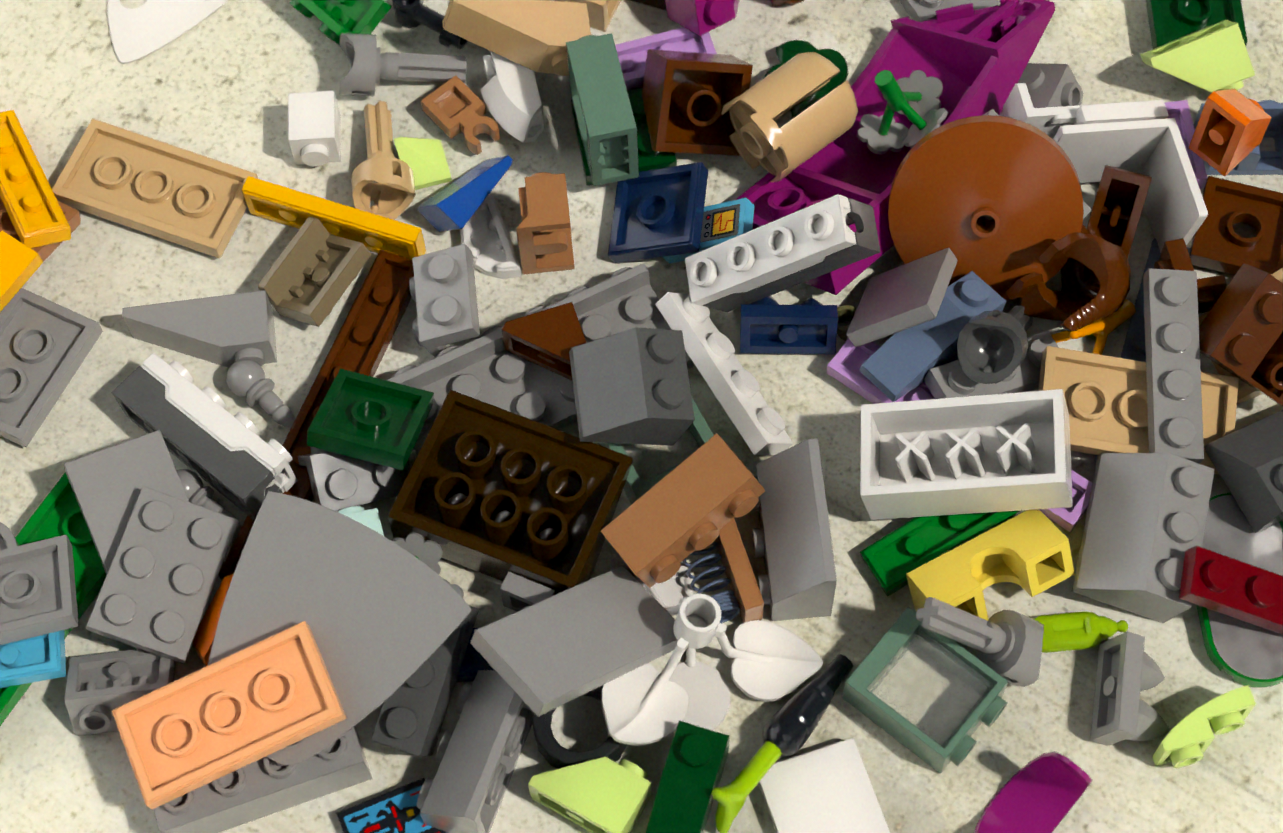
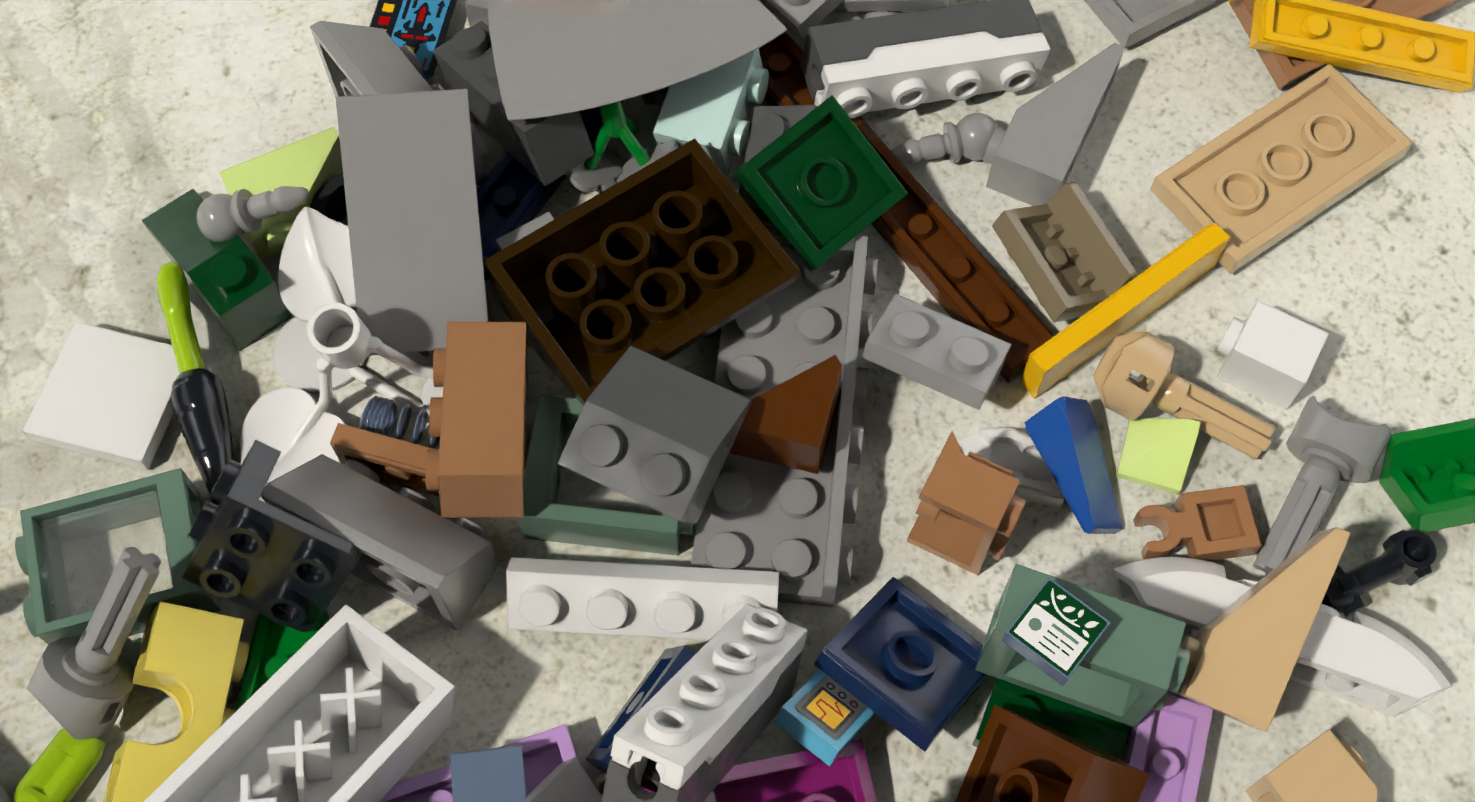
camera: 120 degrees right, 0 degrees up
(619, 92) = (1055, 631): none -> tile
(653, 792) = (226, 215): none -> light grey bar
(862, 585) = (264, 553): none -> black bracket

